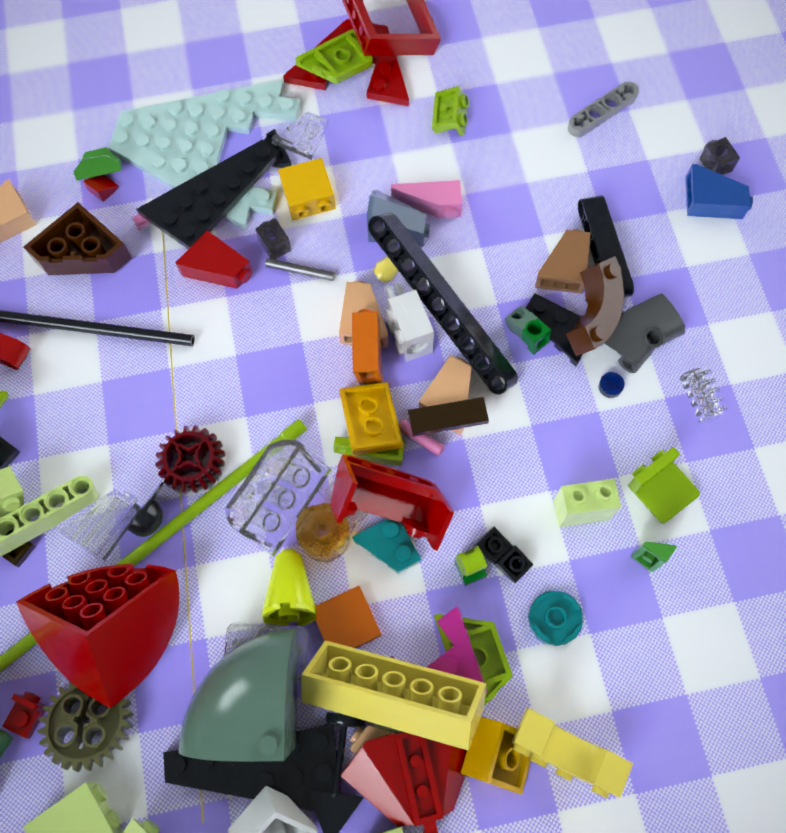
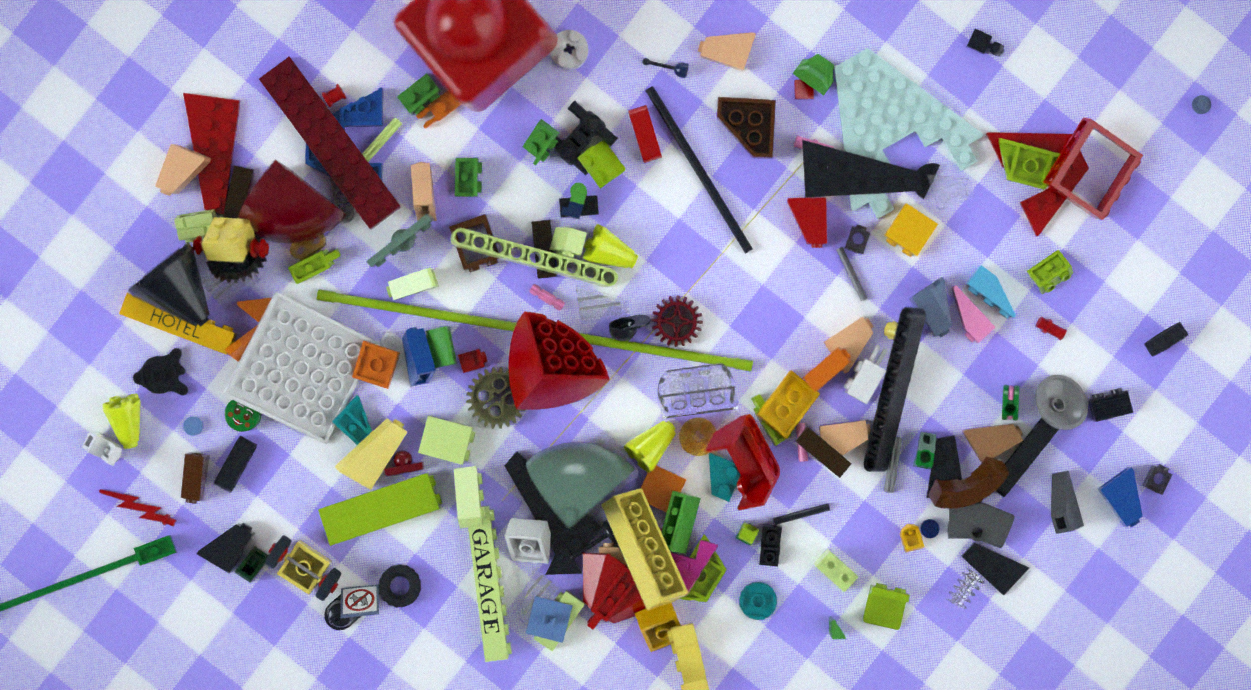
camera: 50 degrees right, 20 degrees up
(42, 572) = (547, 297): none -> bright pink axle
(57, 465) = (608, 249): none -> neon yellow cone
(207, 33) = (980, 42): none -> black plate
(396, 627) = (680, 520): none -> bright green brick
(424, 165) = (989, 287): none -> medium azure slope
(495, 497) = (801, 514): none -> black bar
(498, 146) = (1048, 327): none -> red pin
(529, 381) = (891, 473): none -> light grey axle
(543, 218) = (1010, 402): none -> green head
(579, 179) = (1067, 397): none -> light grey dish
(591, 59) = (1166, 339): none -> black tyre
(603, 109) = (1139, 372): light grey beam -> none
(608, 406) = (911, 538): none -> yellow plate
(615, 146) = (1110, 405): none -> black brick
(682, 244) = (1064, 504): none -> dark grey slope
(705, 351) = (994, 567): none -> black wing

